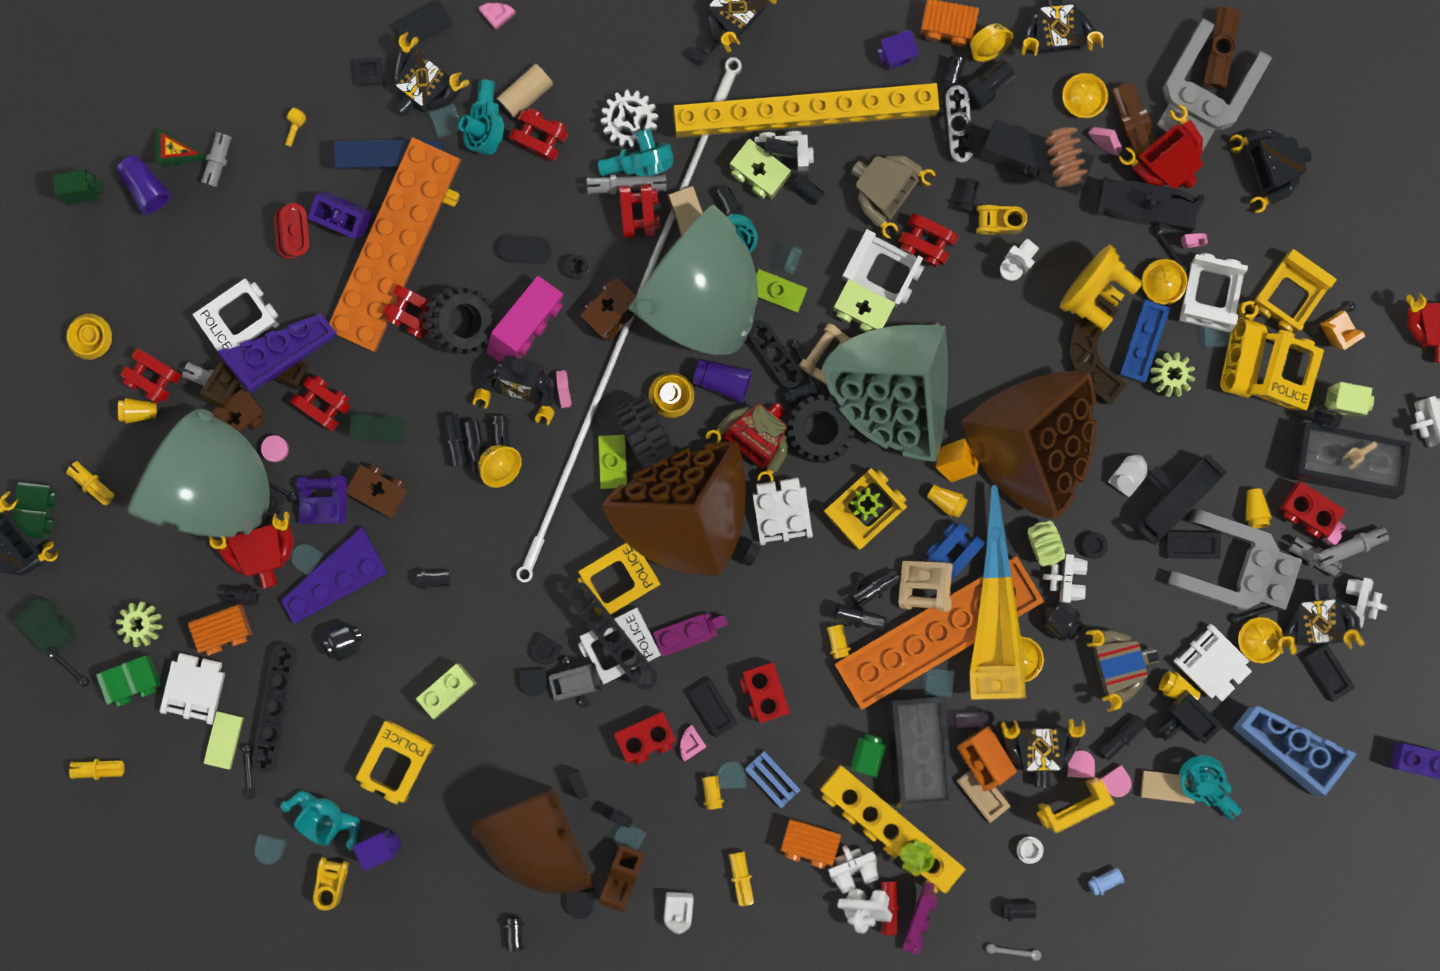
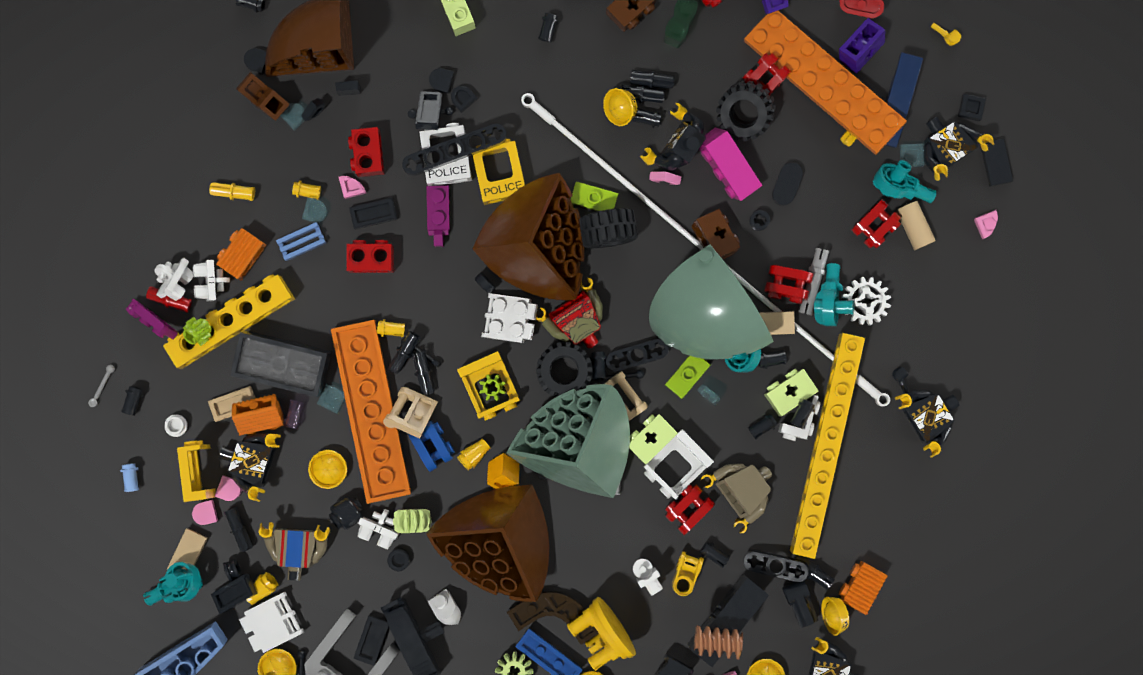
camera: 110 degrees right, 0 degrees up
(664, 397) = (635, 256): yellow hat -> none
(678, 911) = (222, 133): white plate -> none
(723, 379) = (630, 307): dark purple plant -> none
(868, 755) = (291, 320): green brick -> none
(898, 50) = (852, 537): dark purple brick -> none
(998, 651) = (339, 452): yellow plate -> none

